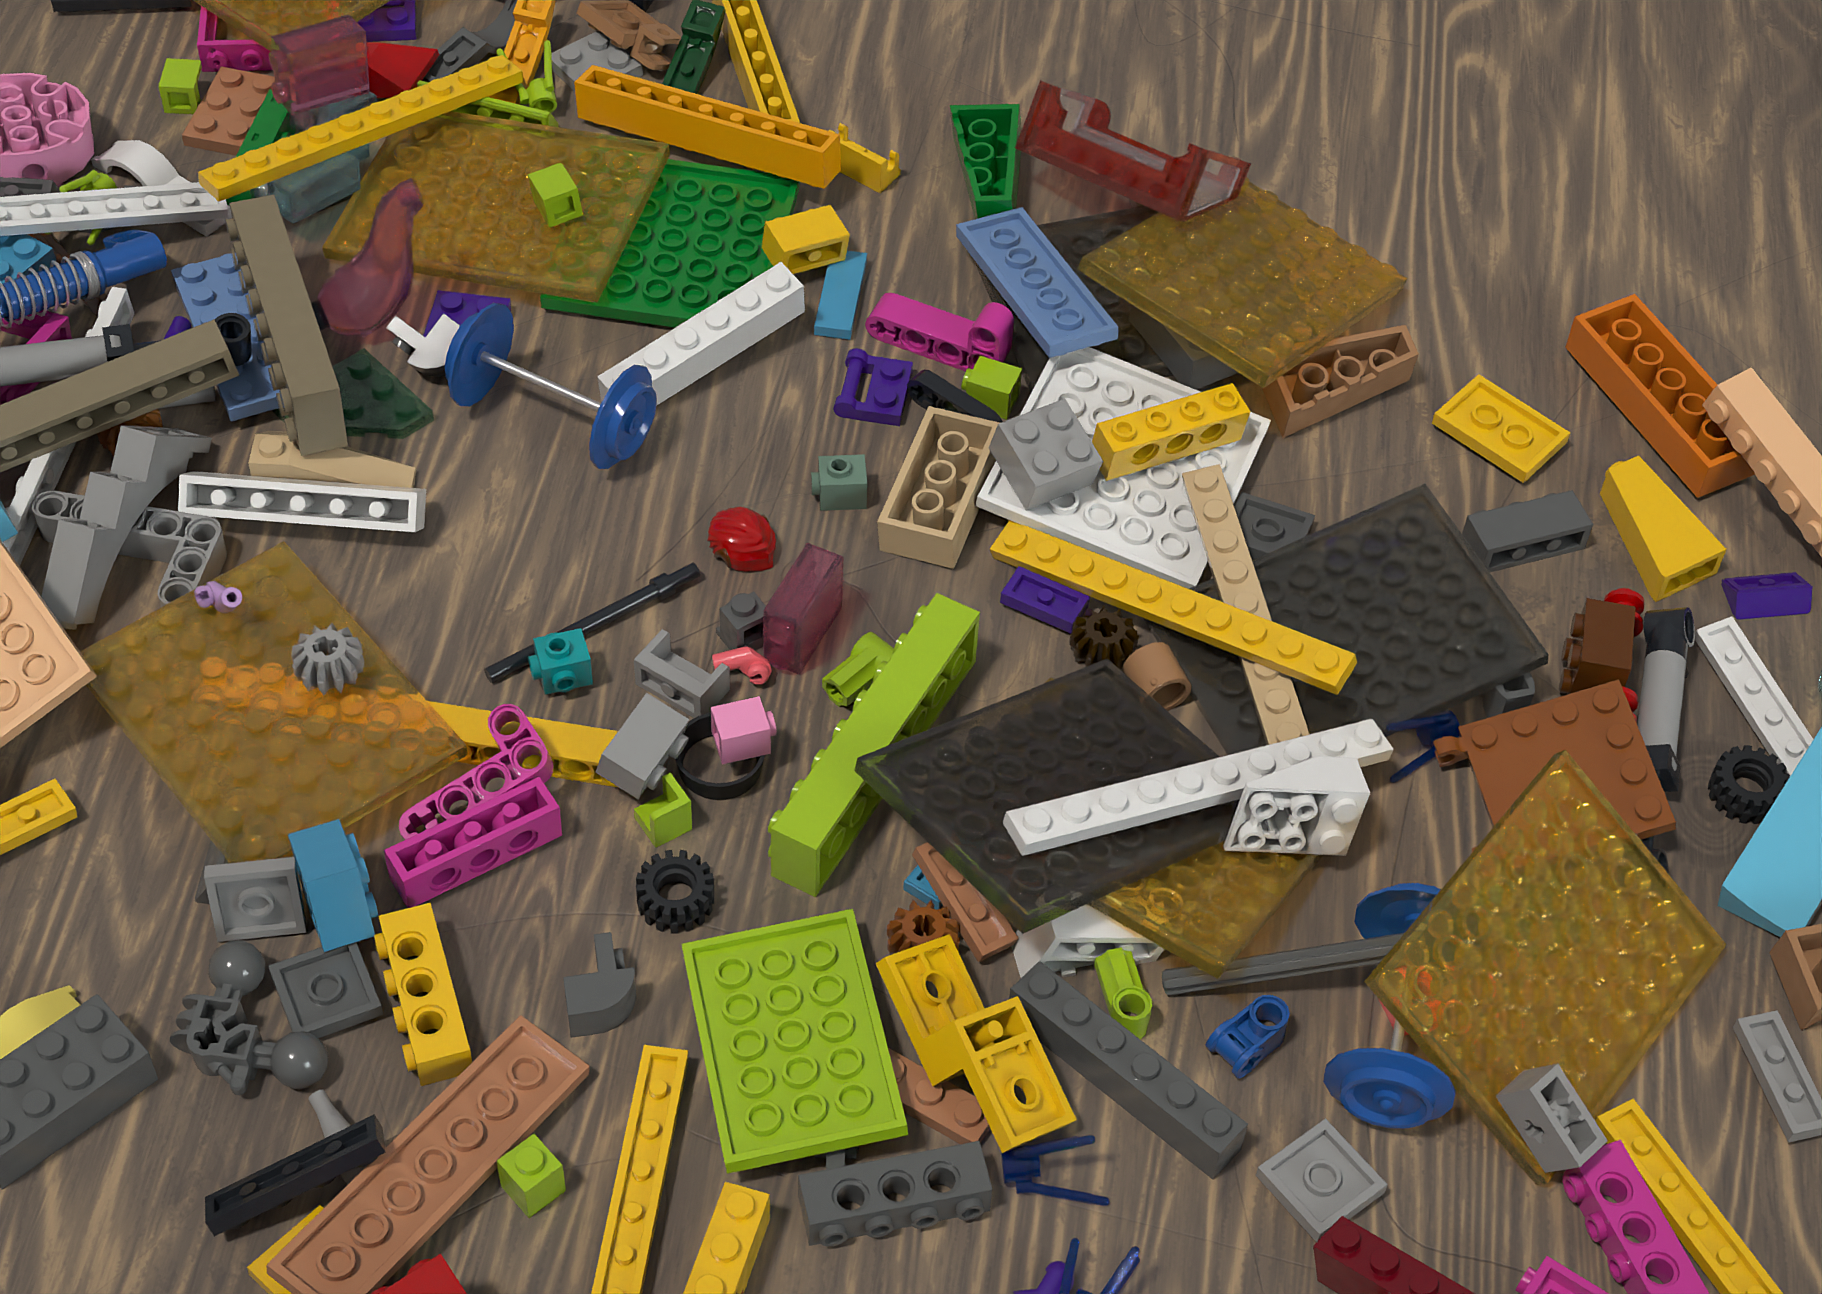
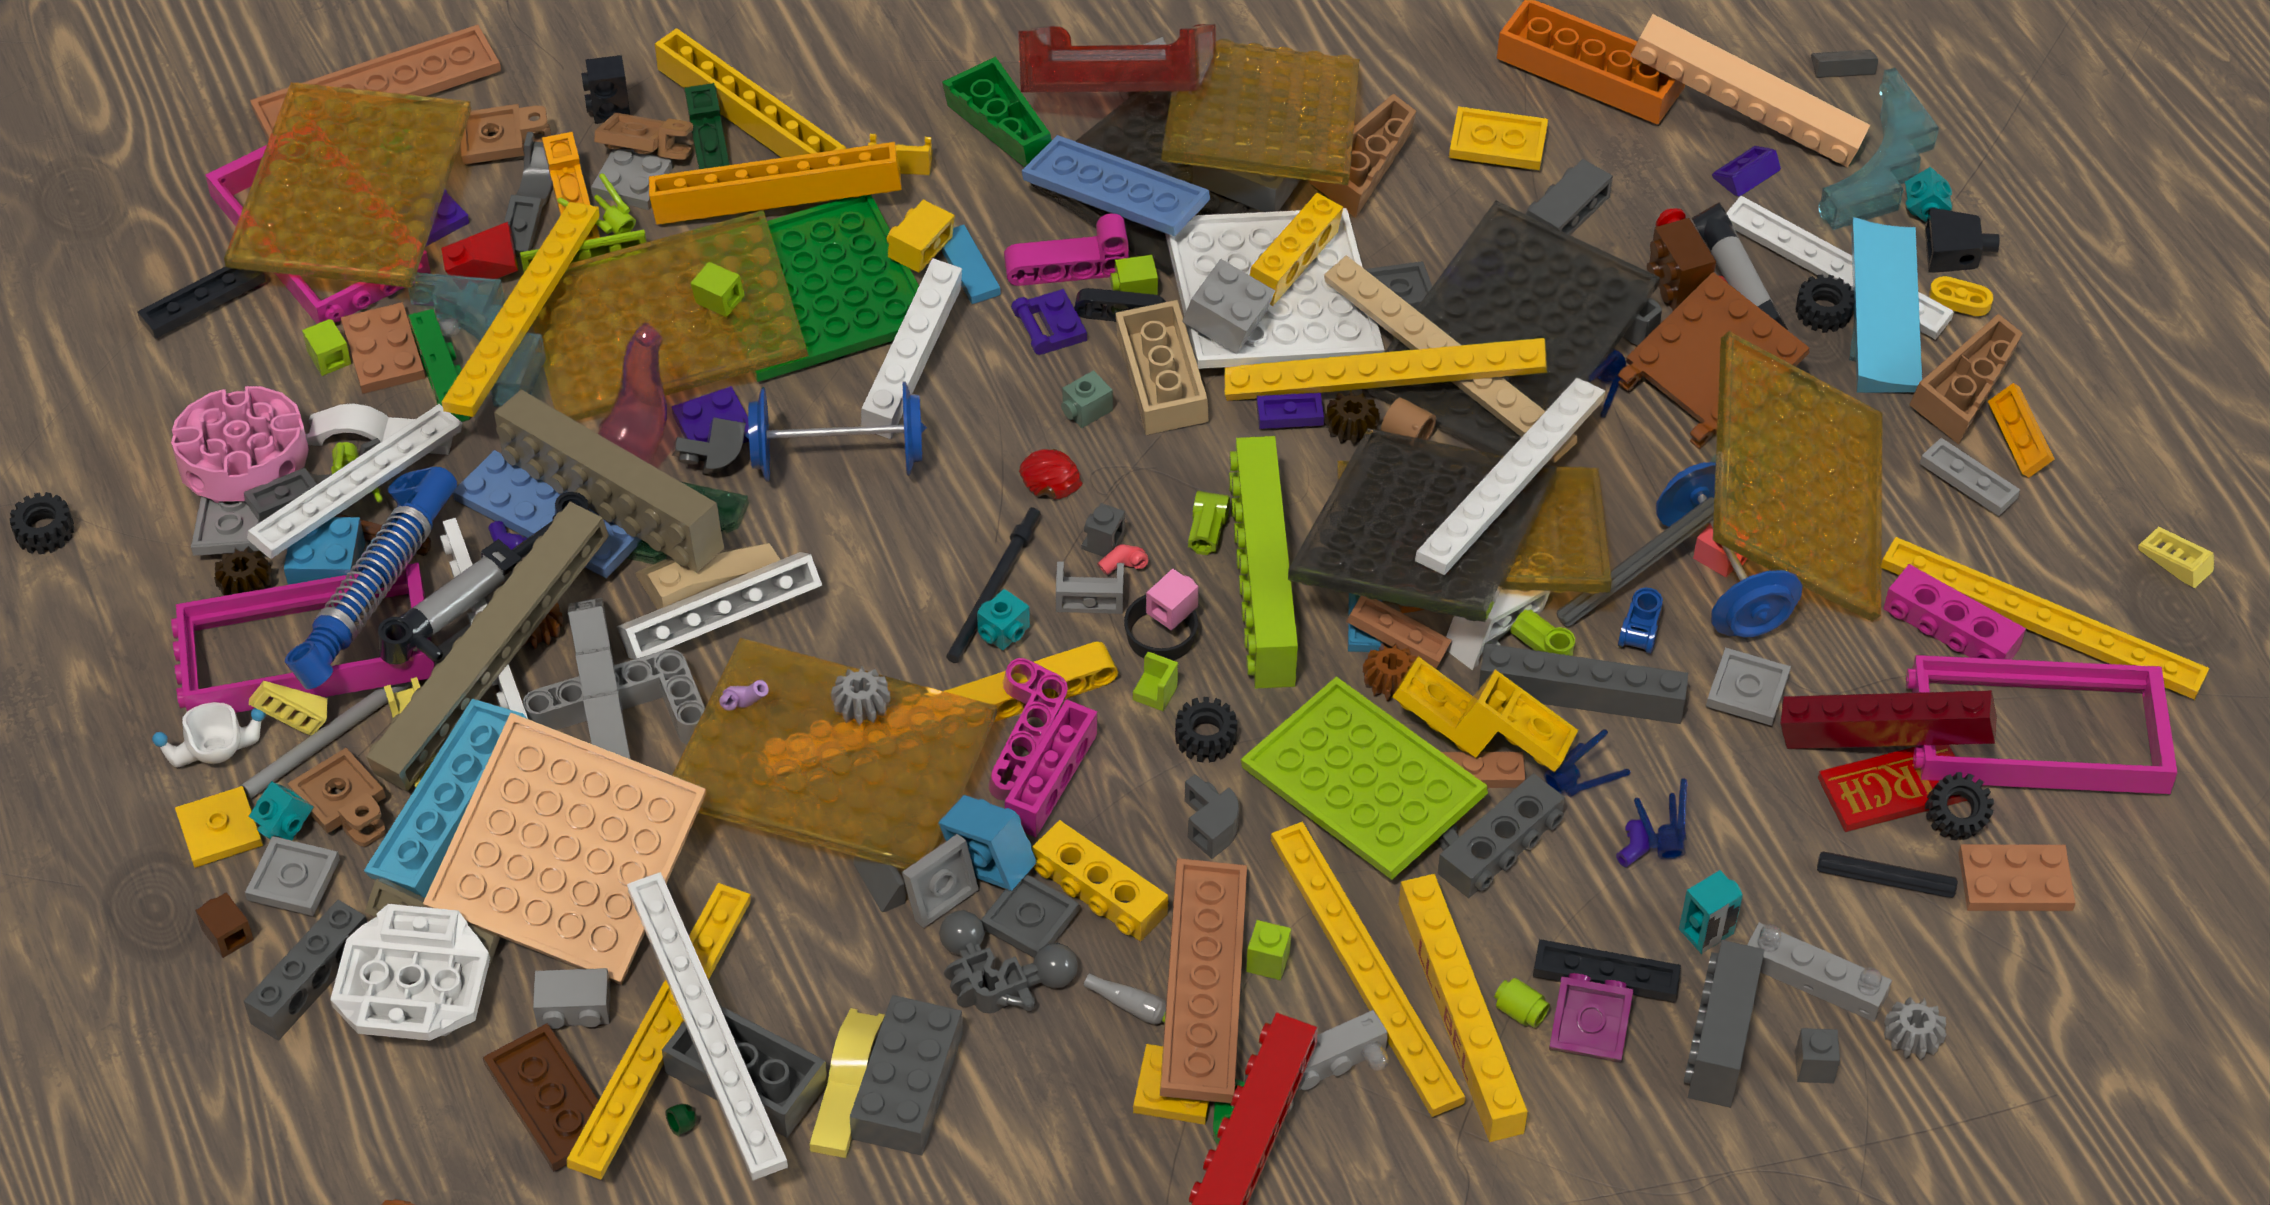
camera: 30 degrees left, 0 degrees up
(294, 1175) = (1122, 1031): black plate -> none
(319, 64) = (455, 274): clear pink brick -> none
(642, 746) = (1118, 643): light grey brick -> none
(803, 608) = (1141, 497): clear pink brick -> none
(1301, 809) = (1582, 457): white slope -> none
(1551, 1118) = (1867, 569): light grey brick -> none
(1659, 530) = (1650, 158): yellow slope -> none

